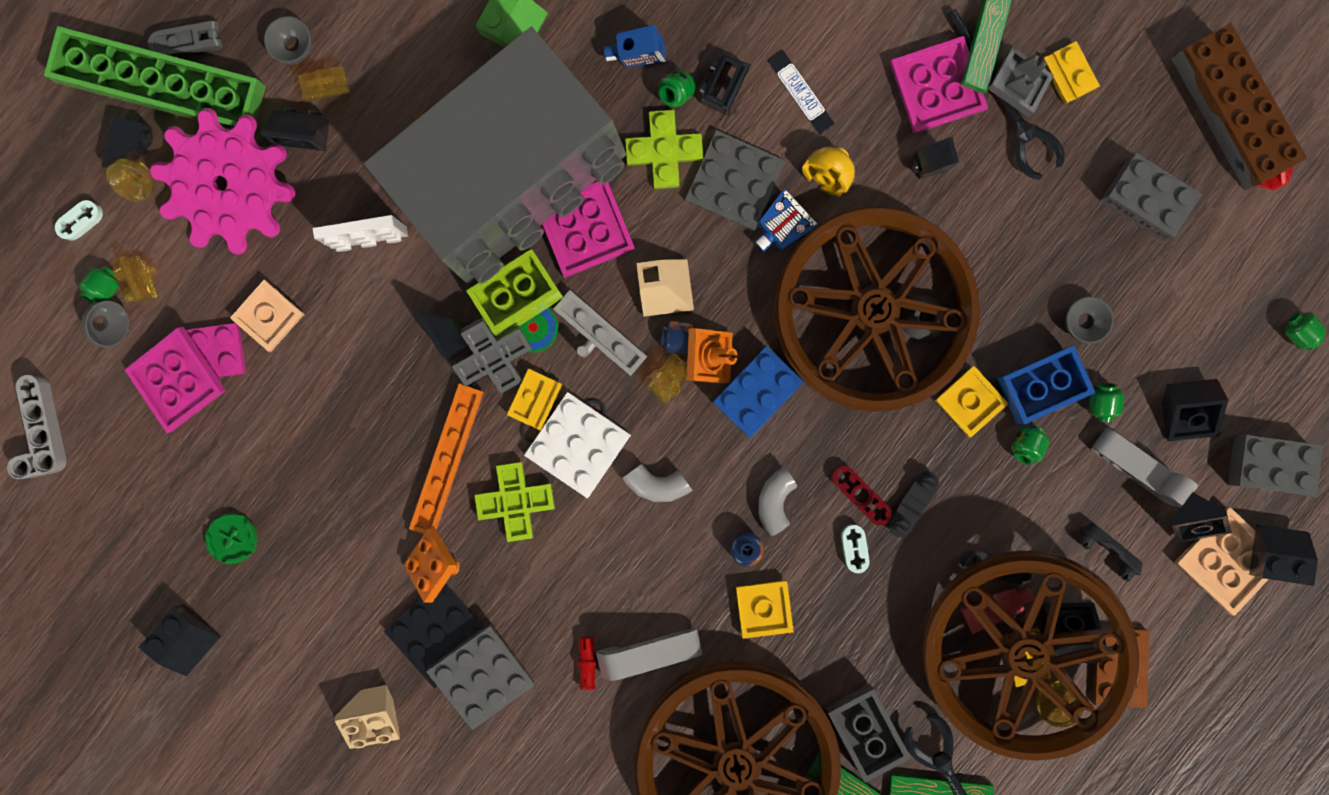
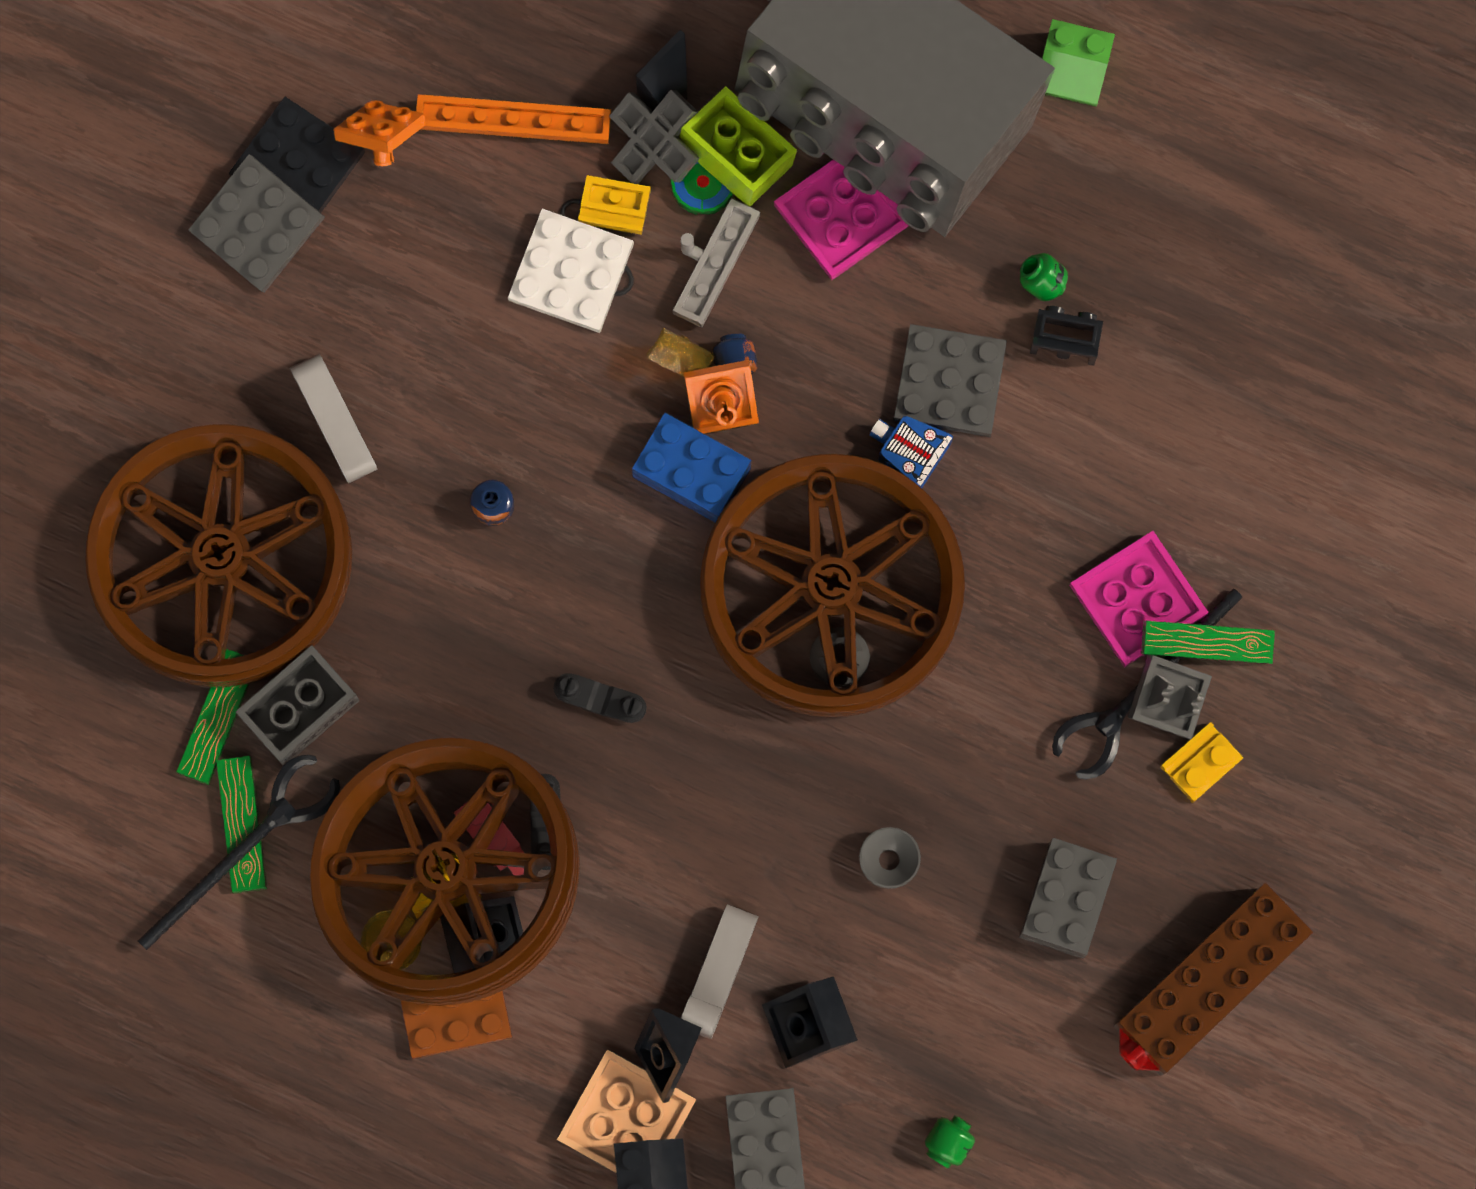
camera: 75 degrees right, 10 degrees down
(369, 718) = (174, 104): tan slope -> none
(514, 502) = (482, 212): lime plate -> none
(587, 662) = (303, 347): red pin -> none
(637, 47) = (1081, 220): blue torso -> none
(657, 488) = (541, 376): light grey cylinder -> none
(664, 149) = (965, 285): lime plate -> none
(665, 287) = (794, 324): tan slope -> none
(764, 609) = (422, 545): yellow plate -> none
(772, 501) = (561, 520): light grey cylinder -> none
(801, 92) = (1084, 434): sticker -> none
(831, 169) = (994, 487): yellow cylinder -> none
(861, 547) = (522, 633): light aqua beam -> none
(870, 513) = (600, 606): dark red beam -> none
(935, 158) = (1041, 612): black slope -> none
(971, 401) = (748, 738): yellow plate -> none
(1030, 445) = (711, 824): green head -> none
(1045, 385) = (792, 820): blue brick -> none
(1106, 402) = (791, 907): green head -> none
(1130, 564) = (591, 991): black piece -> none

